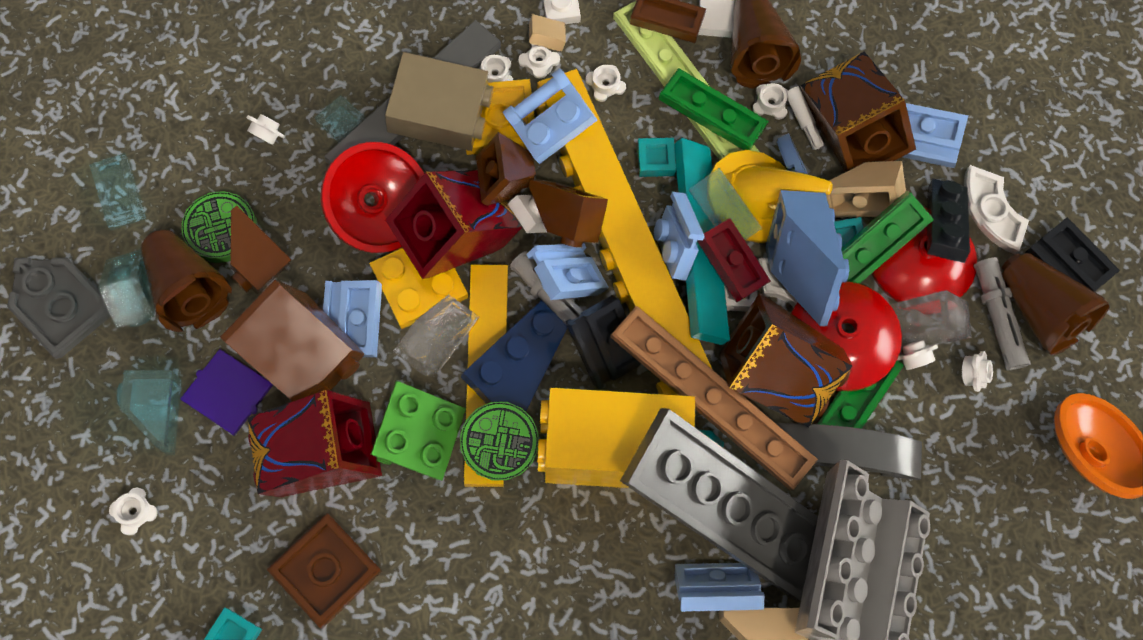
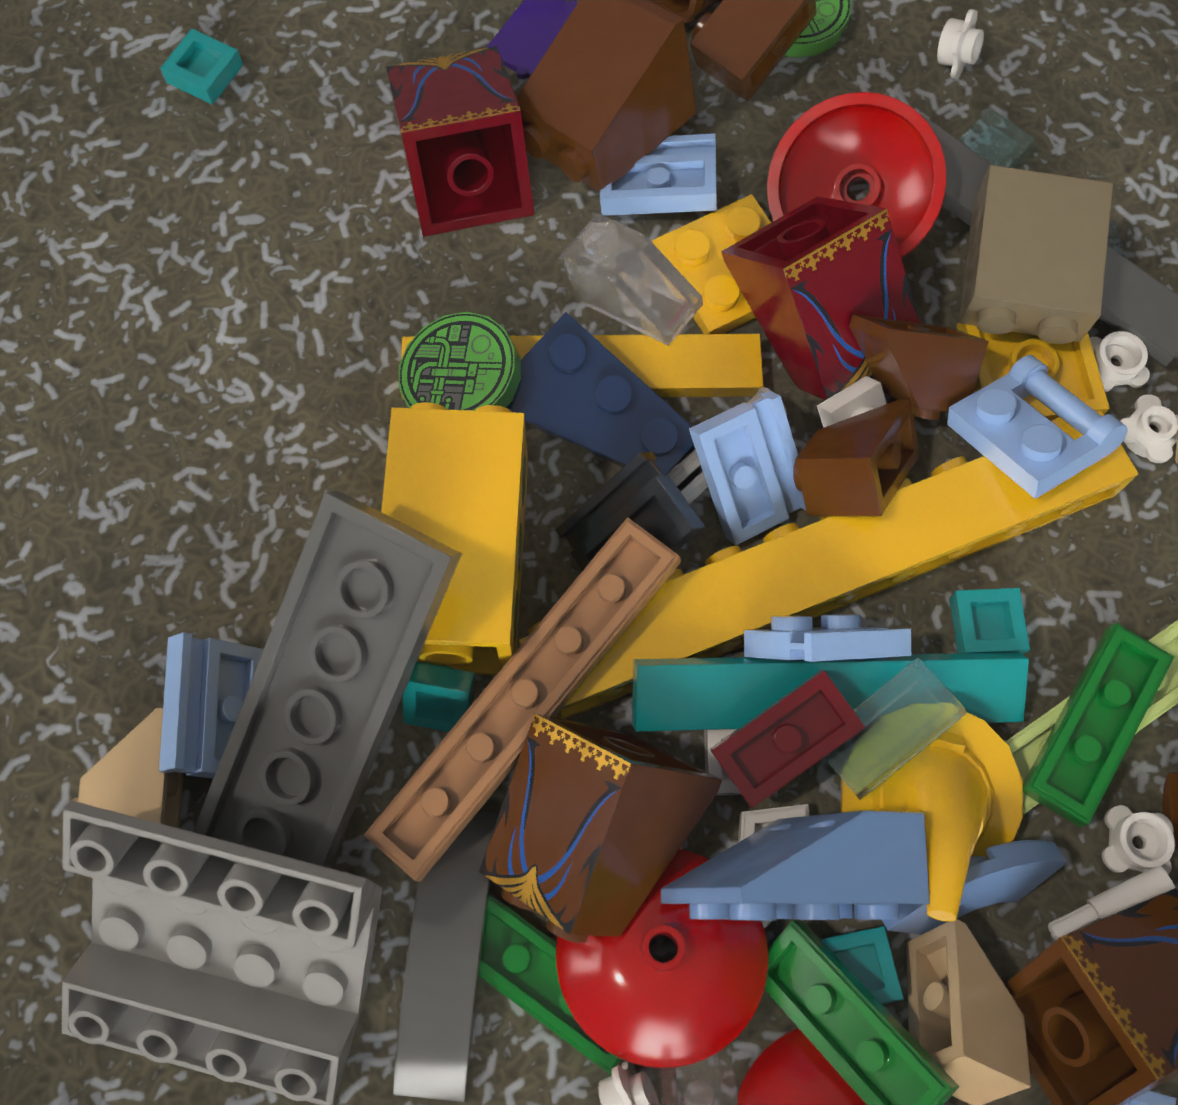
camera: 90 degrees right, 0 degrees up
(324, 571) = (287, 171): reddish brown tile -> none
(418, 431) = (484, 266): bright green hinge -> none
(605, 73) = (1139, 528): white plate -> none

